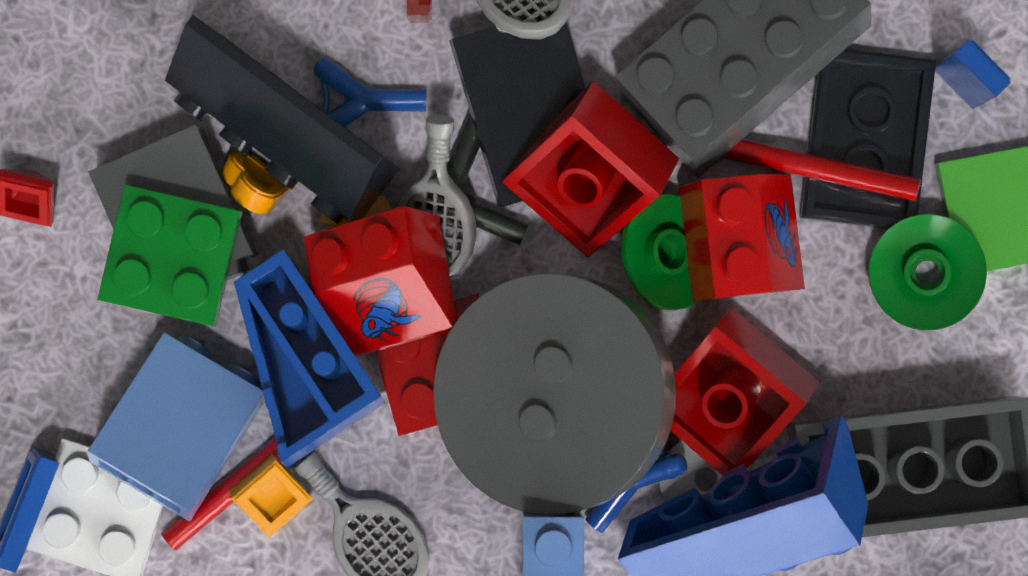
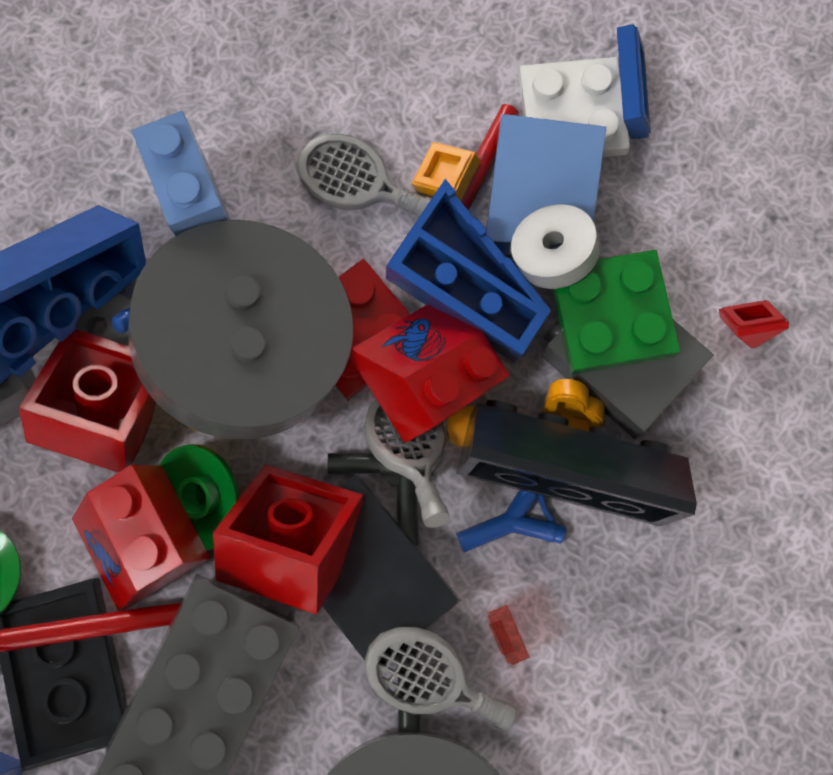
camera: 160 degrees right, 10 degrees down
(204, 369) = (561, 265): none -> piece

